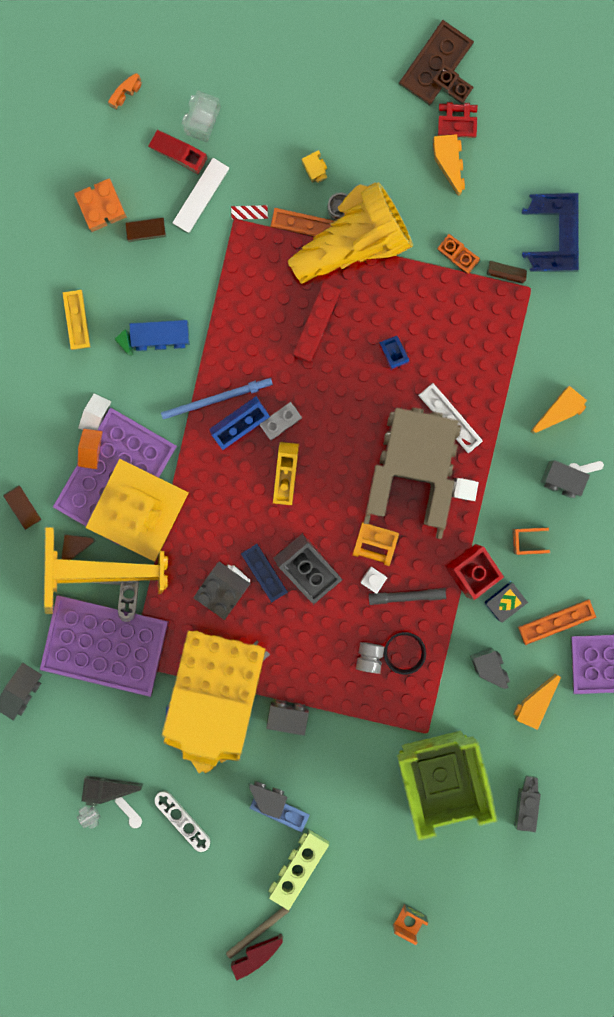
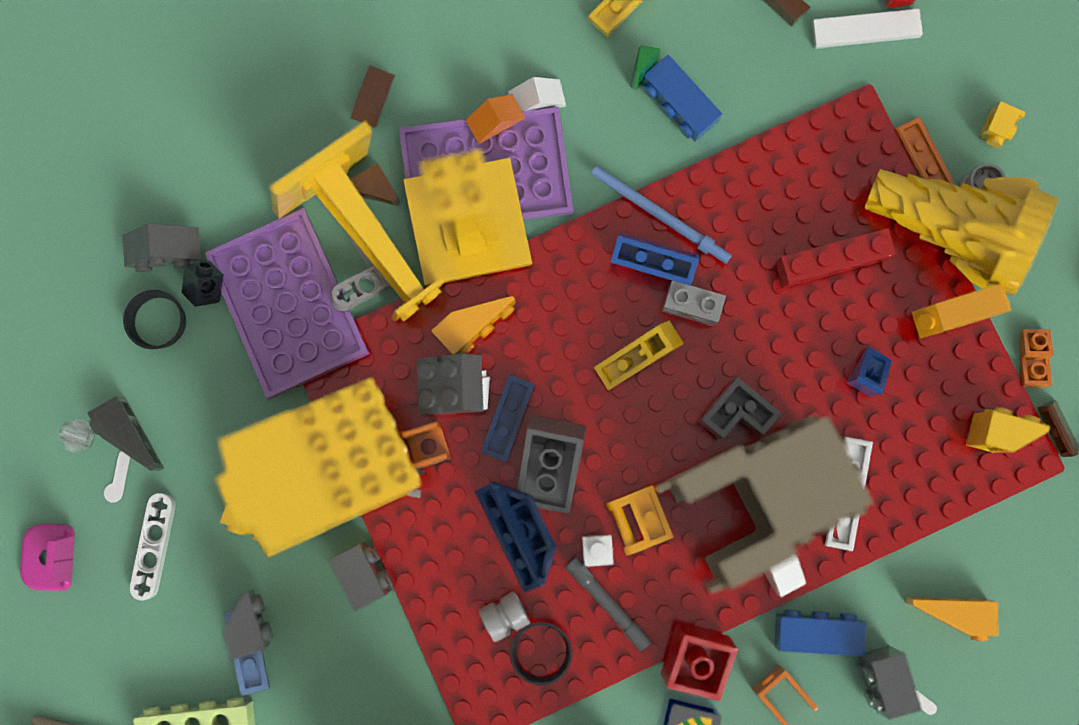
camera: 55 degrees right, 5 degrees down
(43, 739) = (132, 309): none -> black tyre
(57, 684) = (202, 283): none -> black brick
(133, 873) = (58, 570): none -> dark pink piece
(194, 559) = (464, 326): none -> light orange slope
(236, 632) = (418, 435): none -> orange piece
(249, 212) = (891, 95): sticker -> none
(331, 614) = (520, 532): none -> dark blue wedge
(353, 442) = (740, 404): none -> dark grey brick
(399, 281) = (961, 311): none -> light orange slope
(482, 311) = (1002, 432): none -> yellow slope
(512, 493) = (820, 633): none -> blue brick

